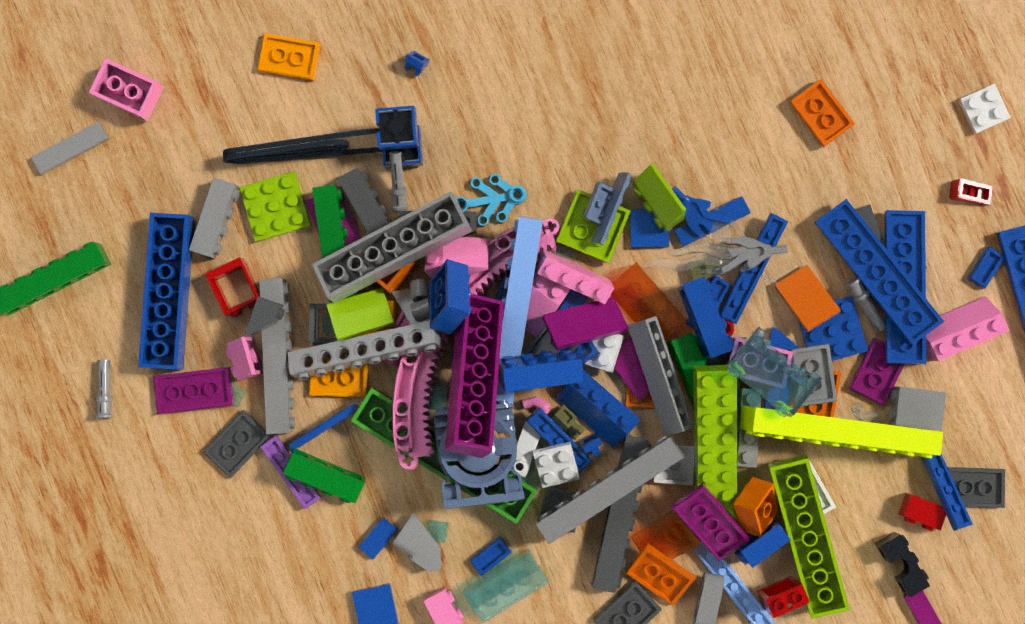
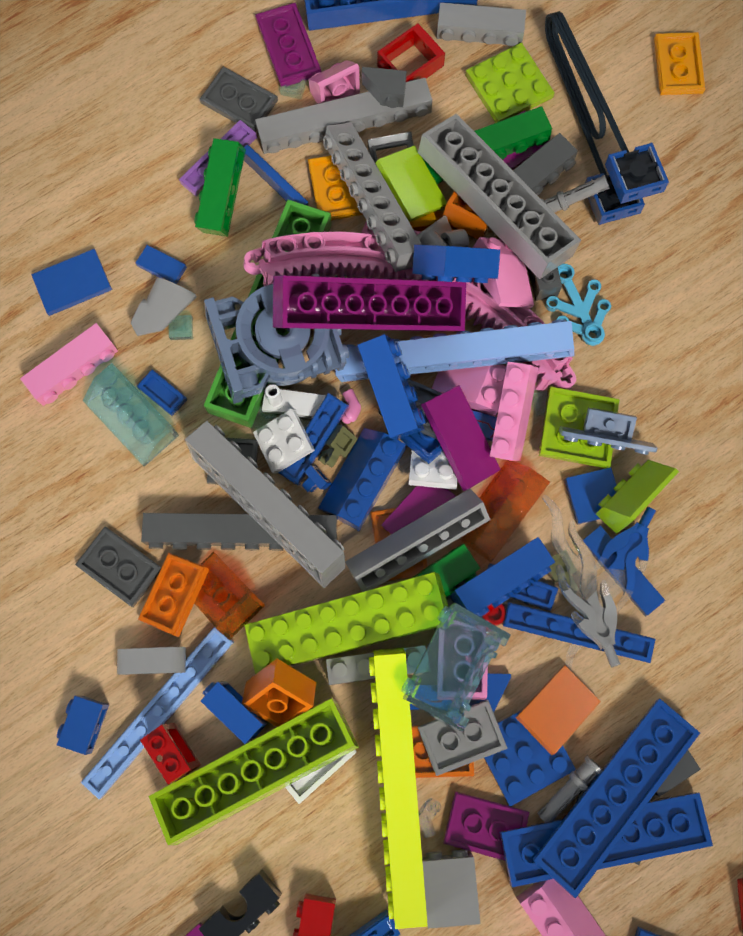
camera: 80 degrees right, 10 degrees down
(416, 60) = (716, 194): blue tile -> none
(680, 472) = (305, 590): white plate -> none
(710, 522) = (248, 638): magenta tile -> none

